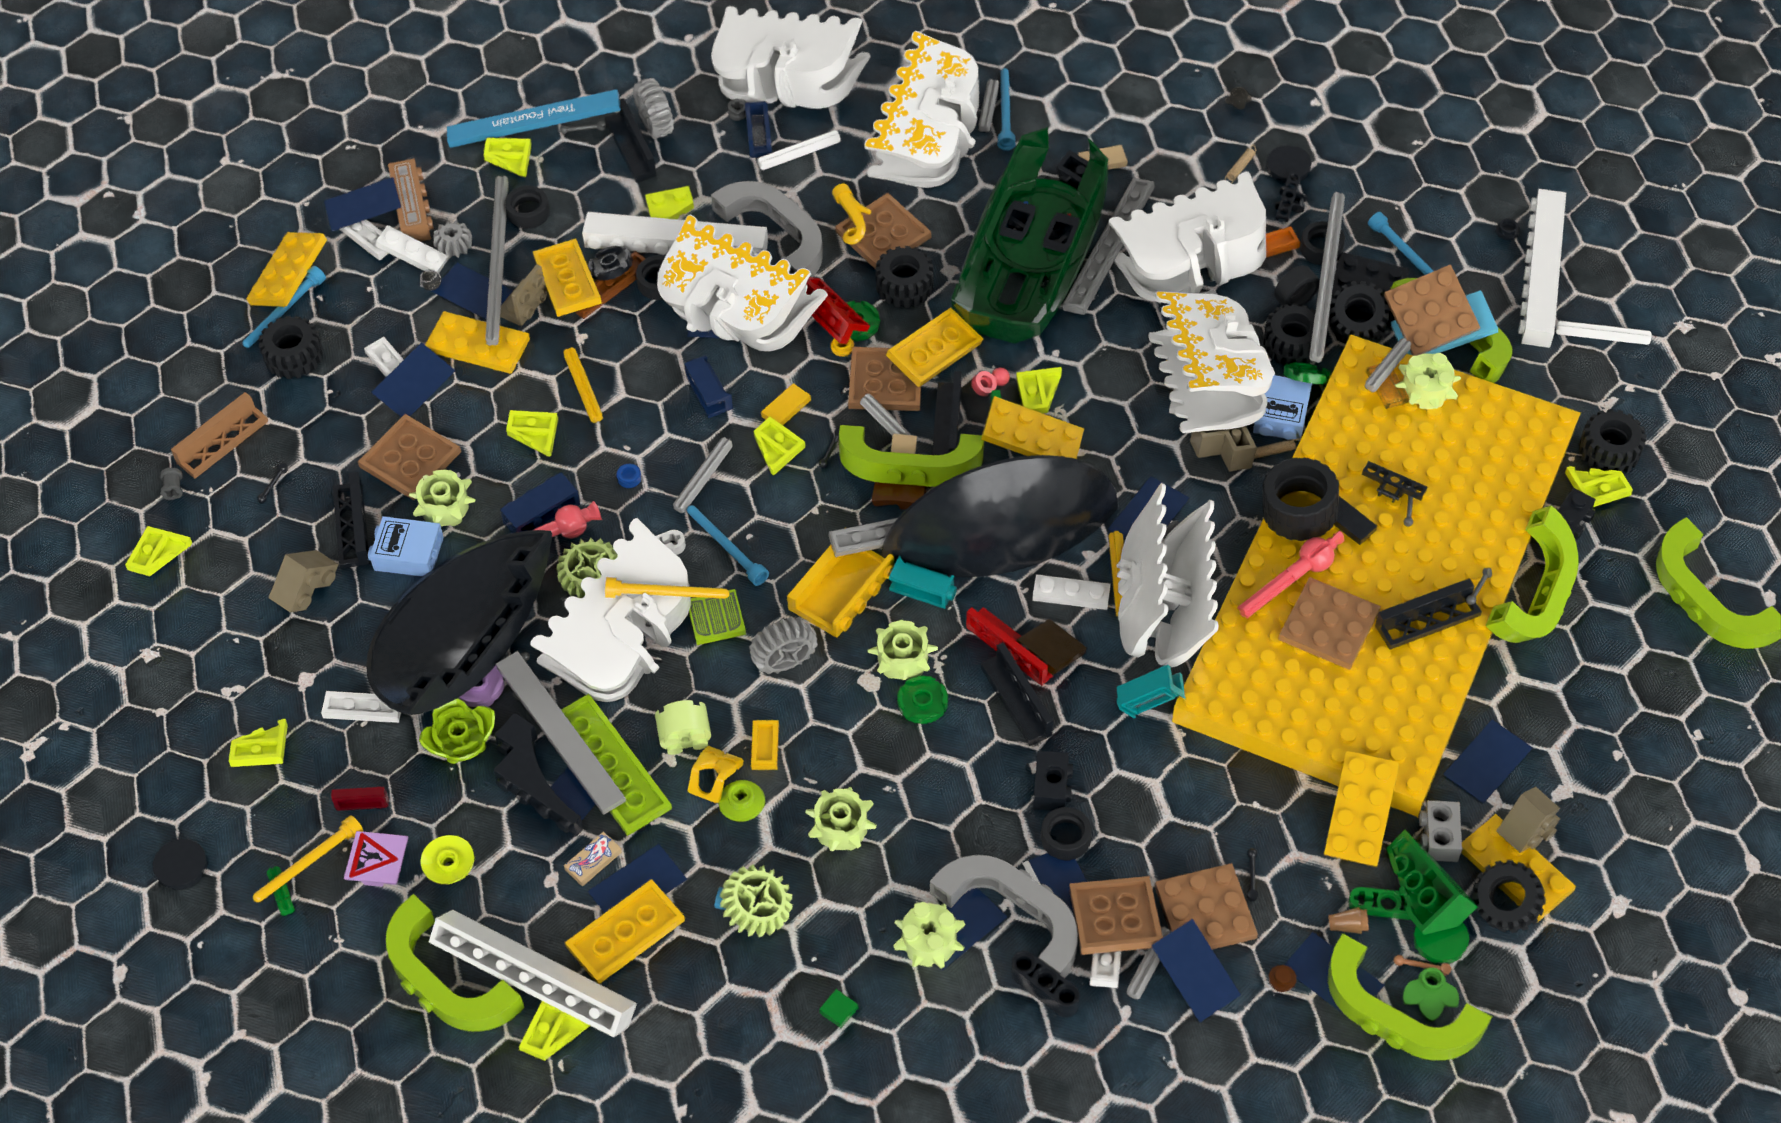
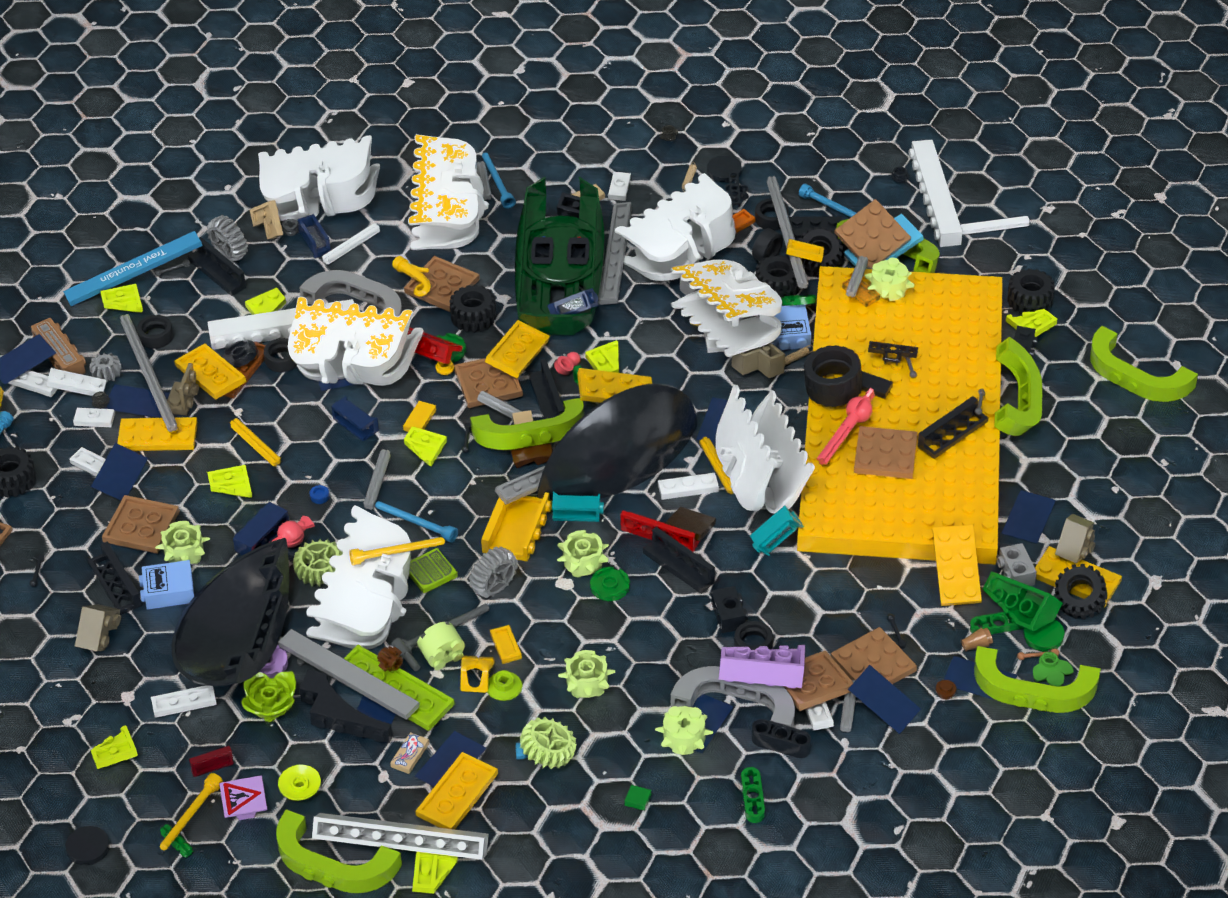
camera: 20 degrees left, 10 degrees down
(415, 300) = (94, 417): none -> white plate
(613, 728) = (390, 659): none -> reddish brown gear
(643, 712) = (406, 646): none -> dark grey bar
(712, 88) = (267, 215): none -> tan plate
(989, 1042) = (750, 802): none -> green beam
(1022, 307) = (575, 304): none -> dark blue window
(1055, 881) = (763, 665): none -> lavender wedge
(1150, 155) = (619, 186): none -> white plate
(1336, 310) = (805, 250): none -> yellow tile

